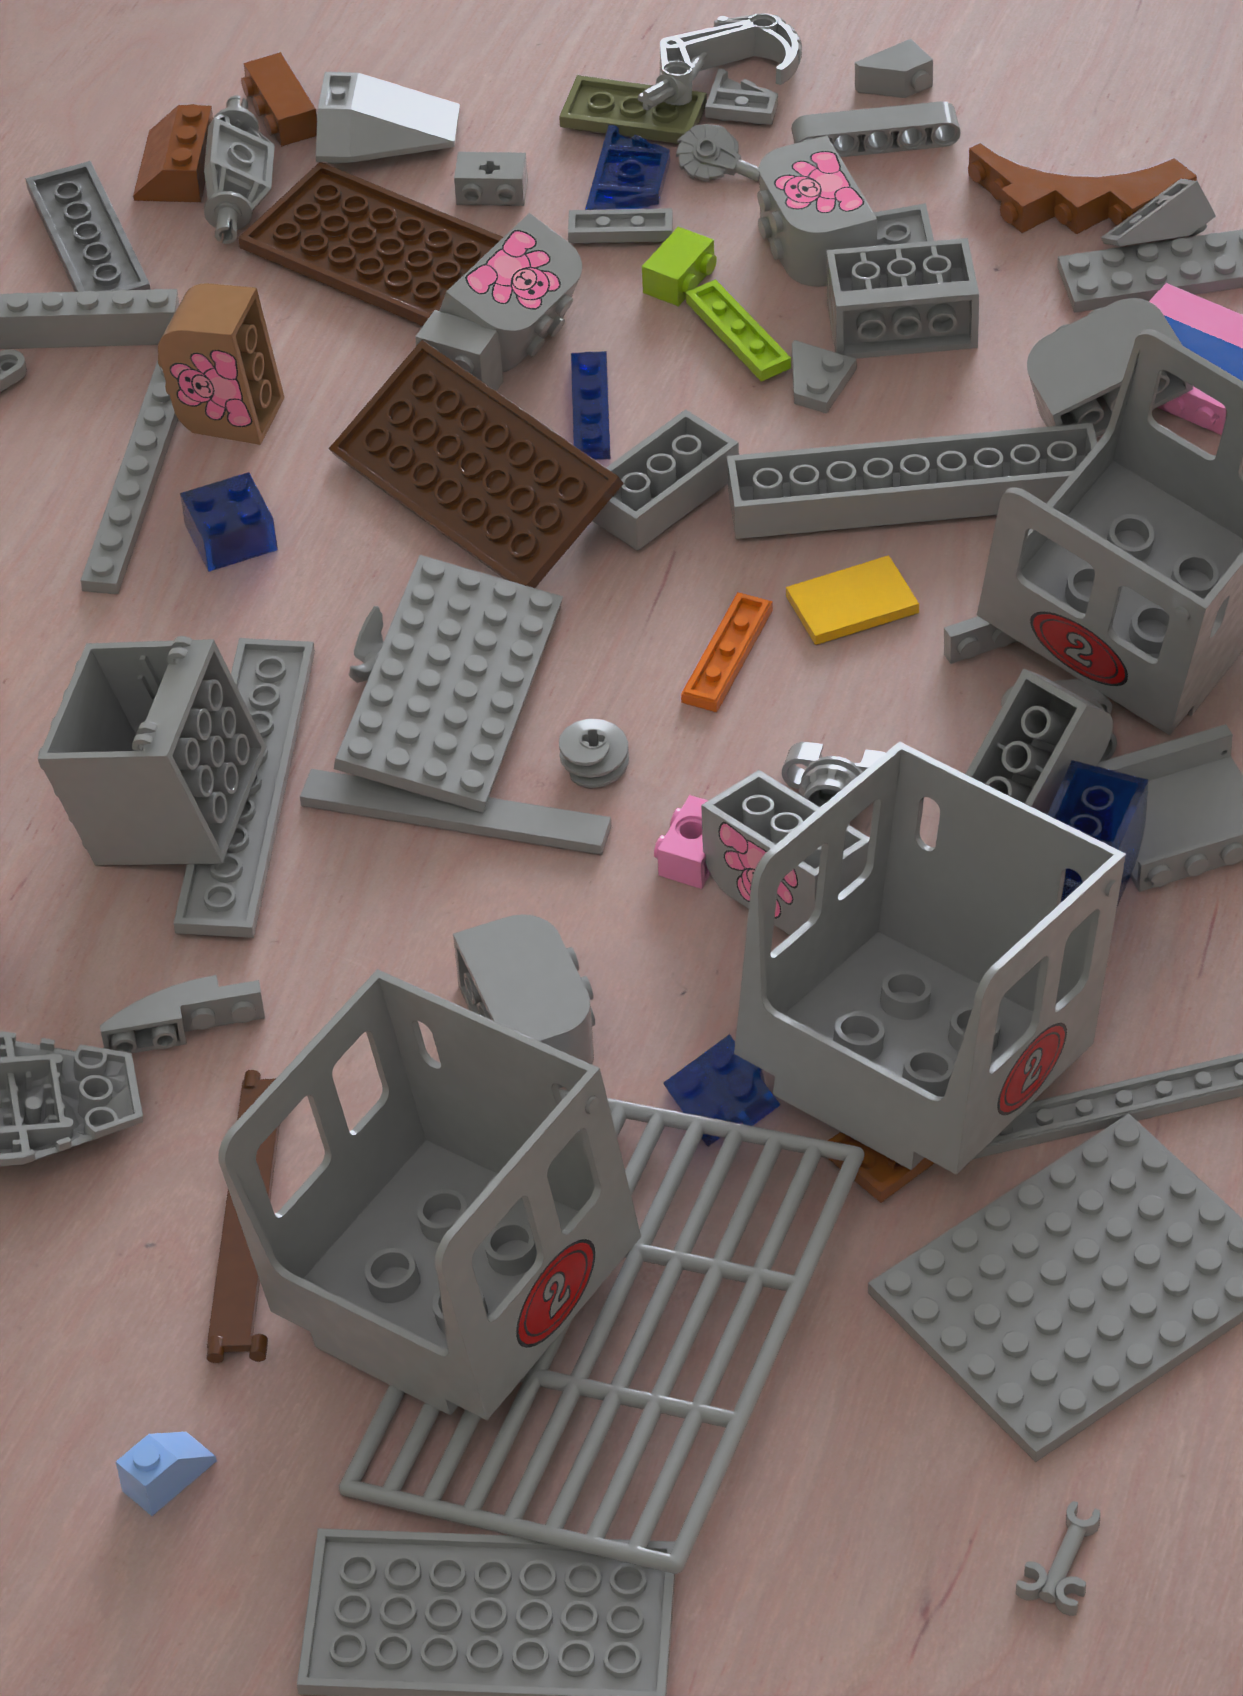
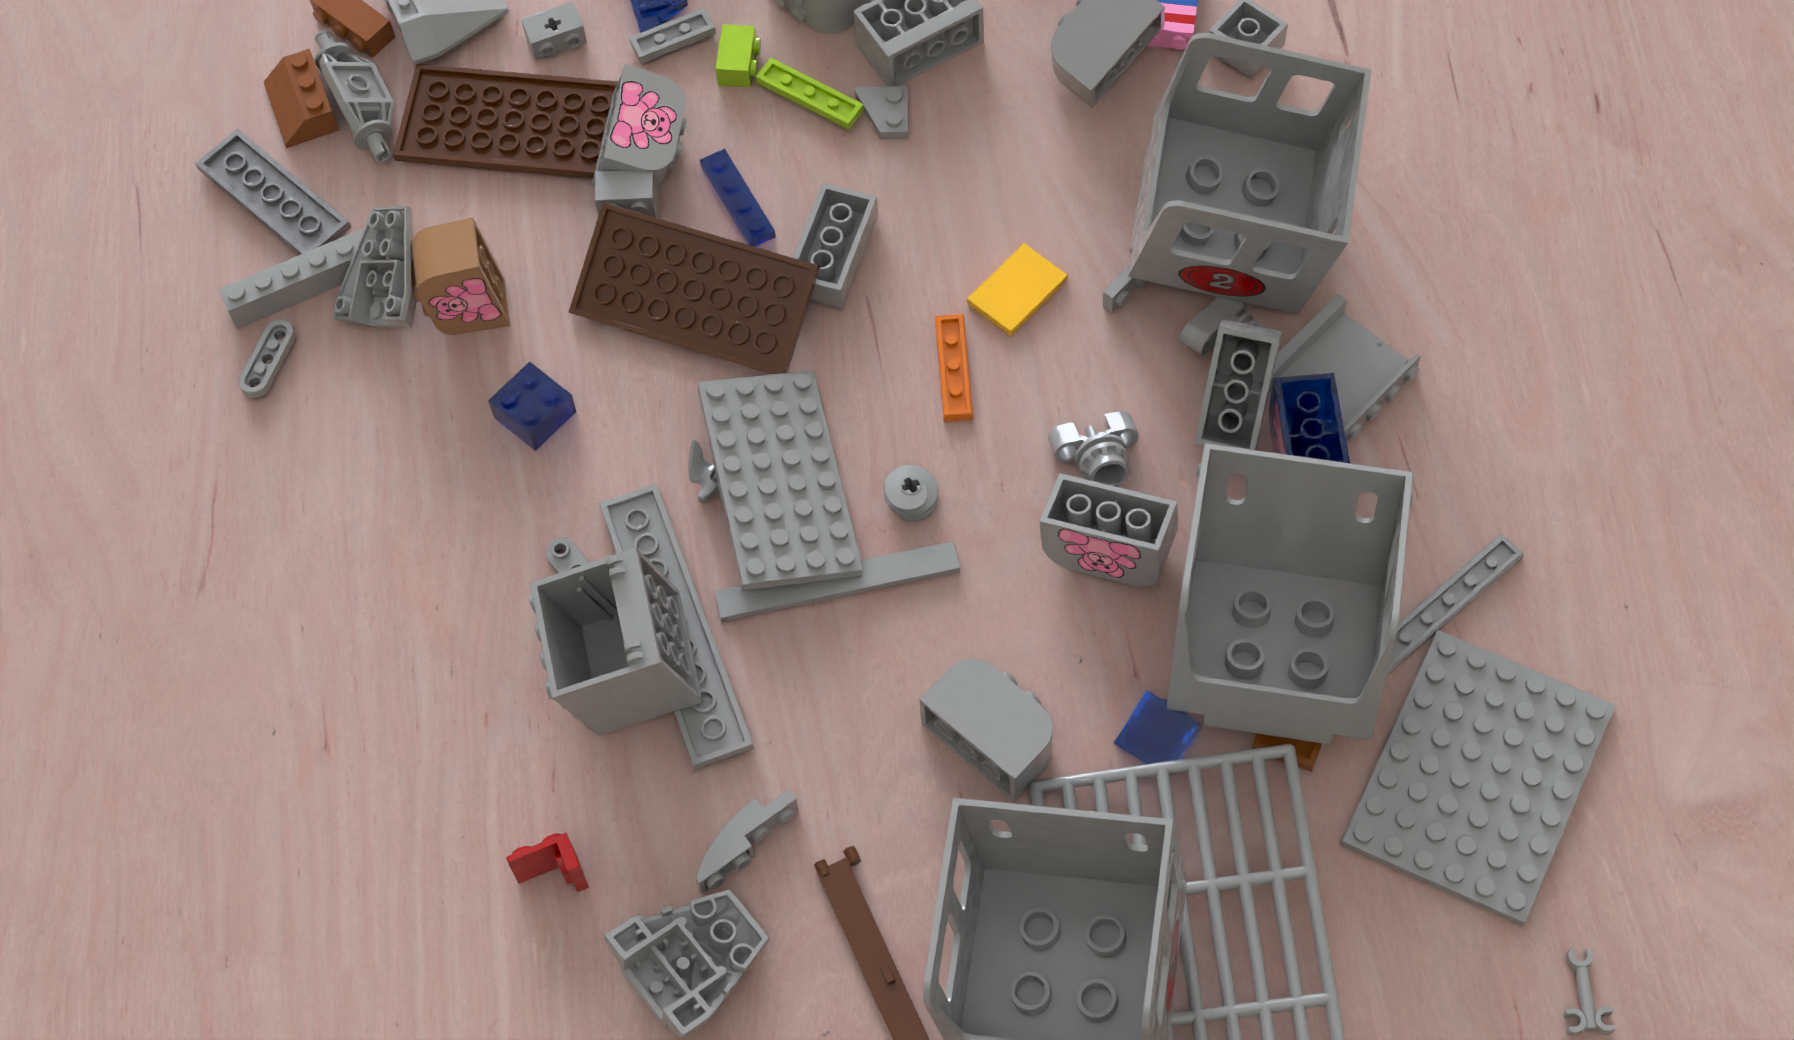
camera: 25 degrees left, 15 degrees up
(127, 354) = (381, 273): none -> light grey wedge
(131, 490) = (440, 409): light grey plate -> none
(681, 849) = (1028, 553): bright pink brick -> none
(899, 479) = (1010, 176): light grey brick -> none

